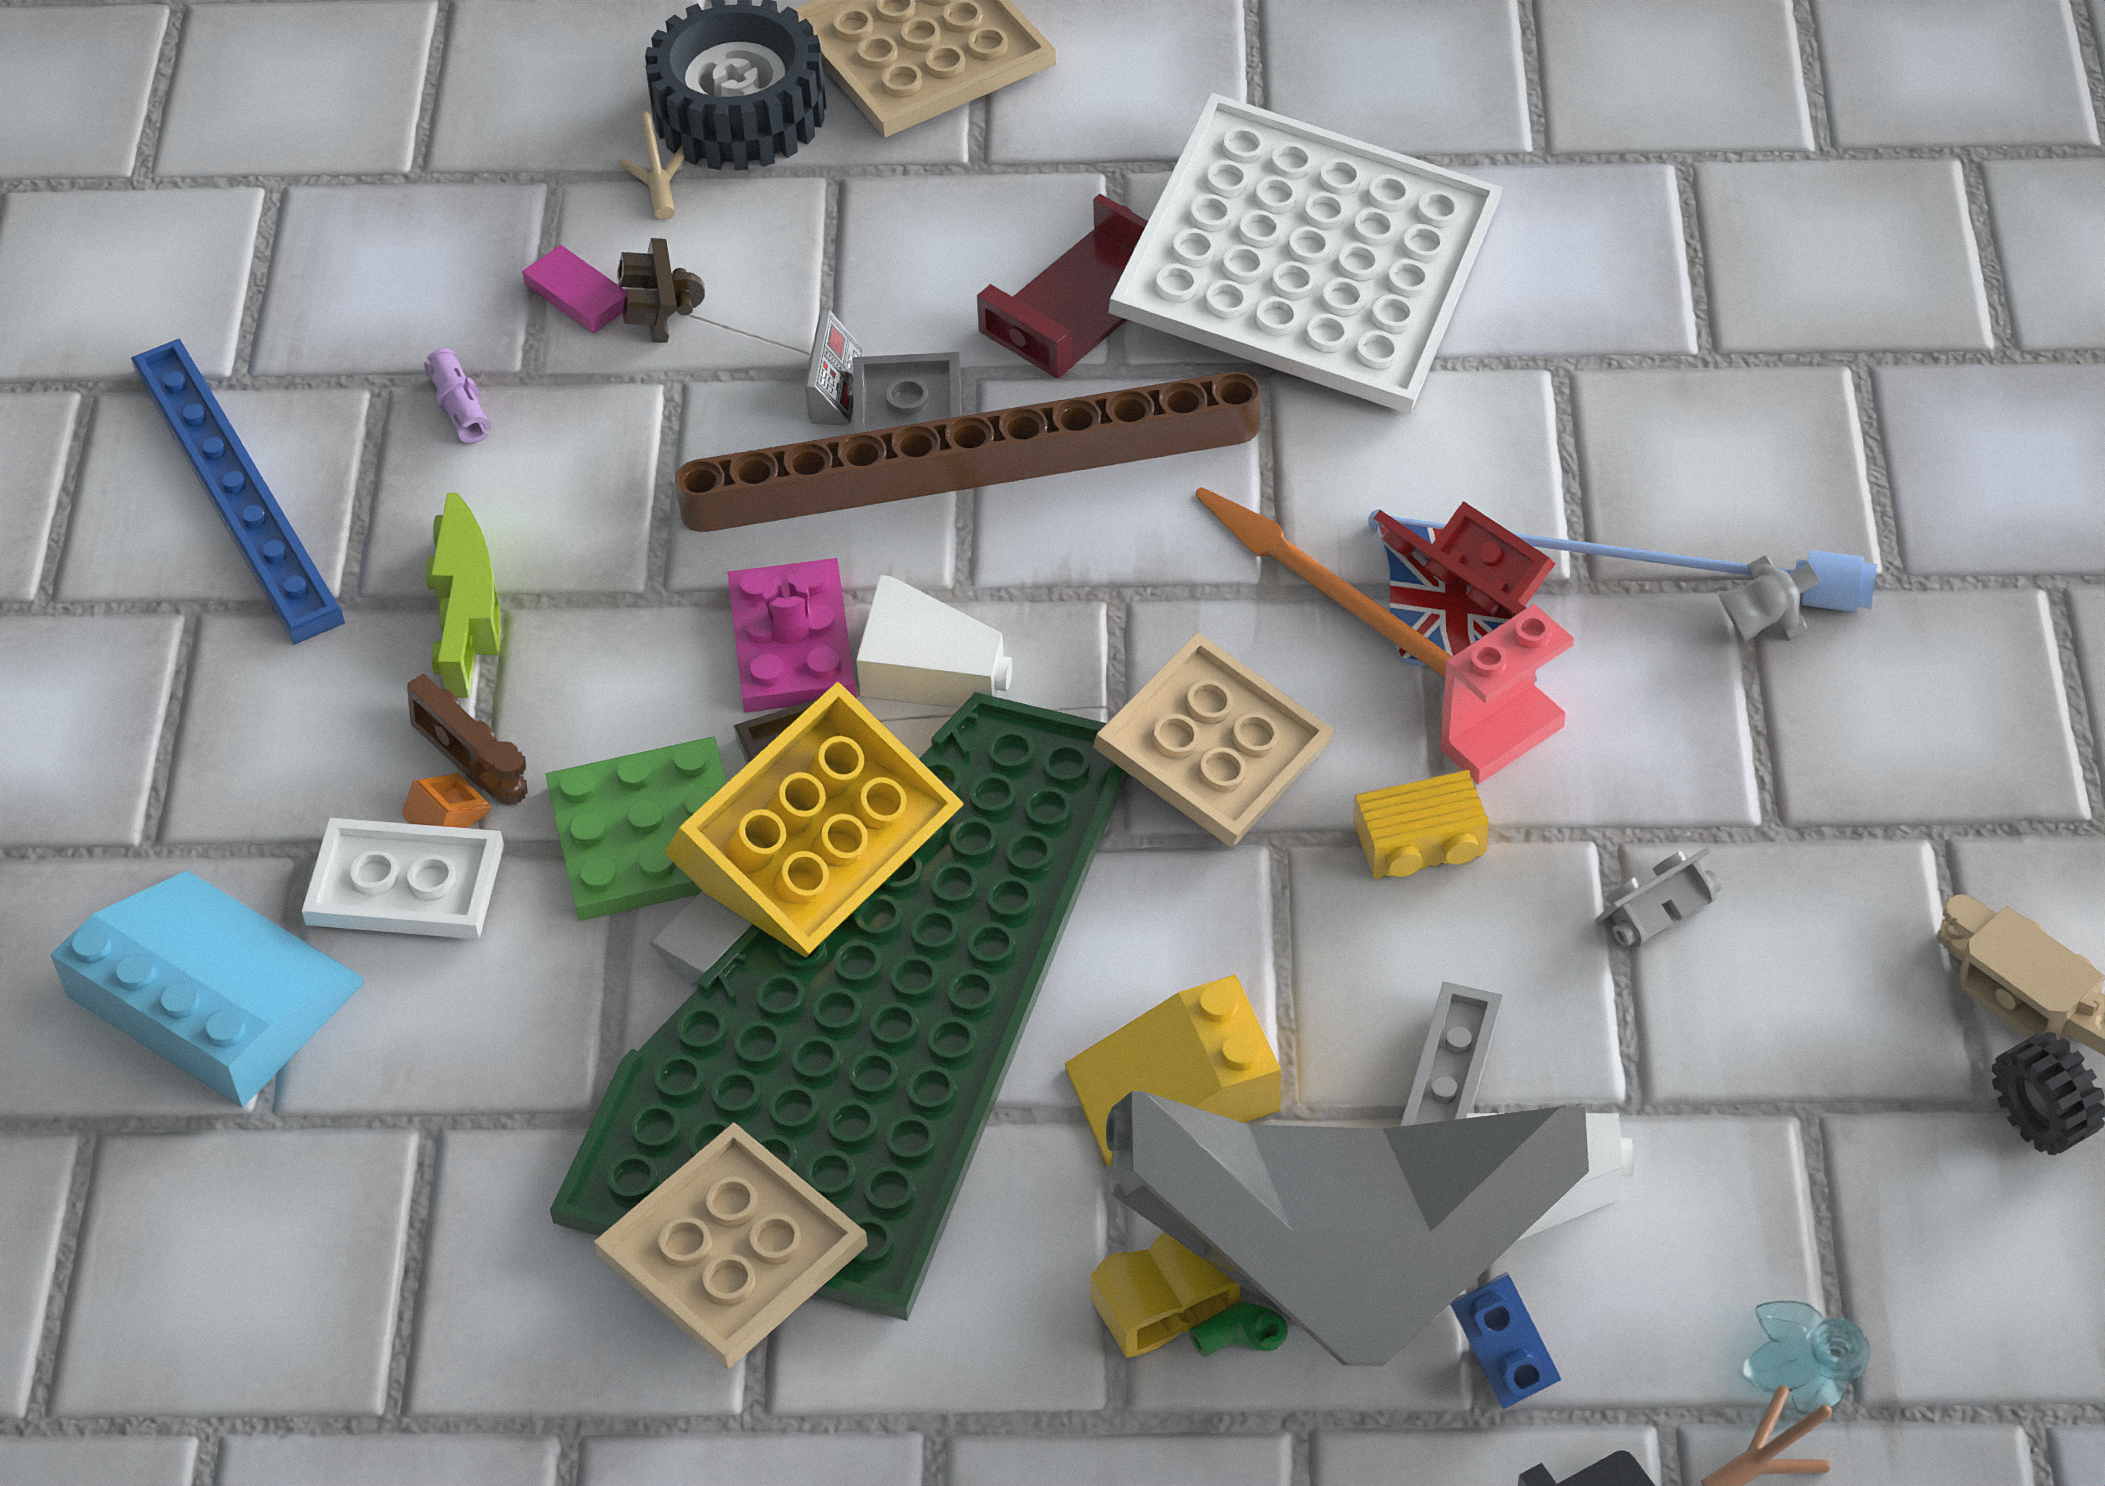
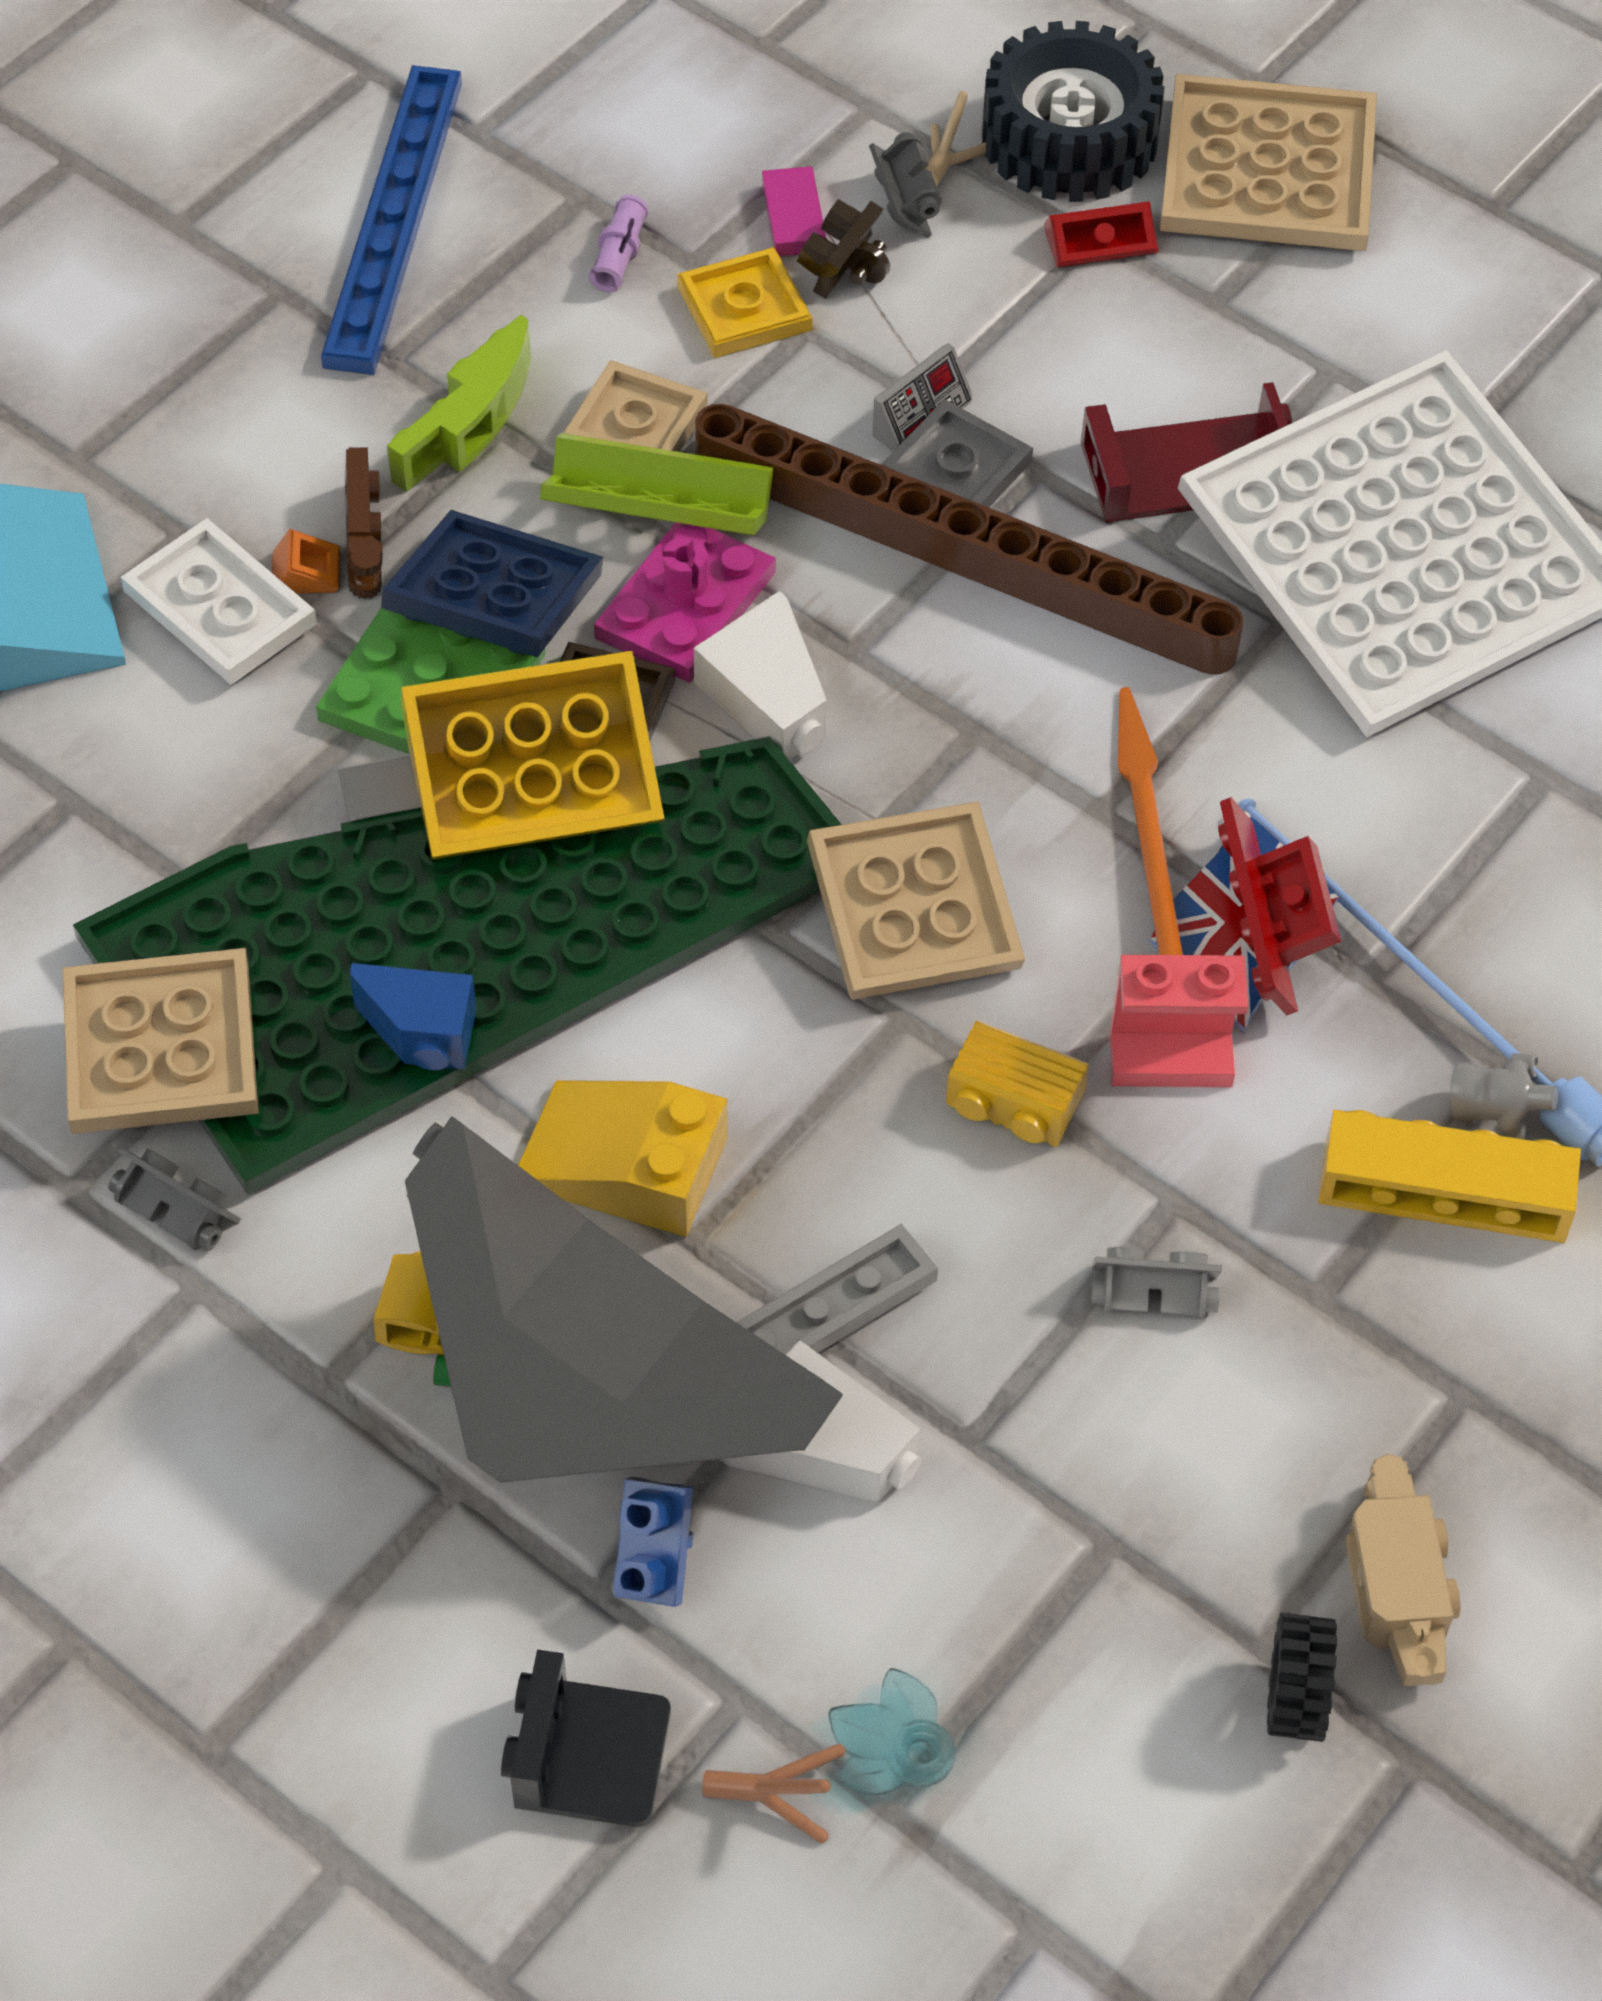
camera: 35 degrees right, 5 degrees up
(606, 382) = (744, 302): none -> yellow tile
(615, 522) = (638, 409): none -> tan plate
(635, 715) = (492, 583): none -> dark blue plate
(638, 207) = (907, 182): none -> dark grey hinge
(690, 557) = (659, 484): none -> lime fence
(827, 1363) = (193, 1209): none -> dark grey hinge
(842, 166) = (1101, 234): none -> red slope
(924, 1078) = (418, 1012): none -> blue slope
(1784, 681) = (1450, 1175): none -> yellow brick

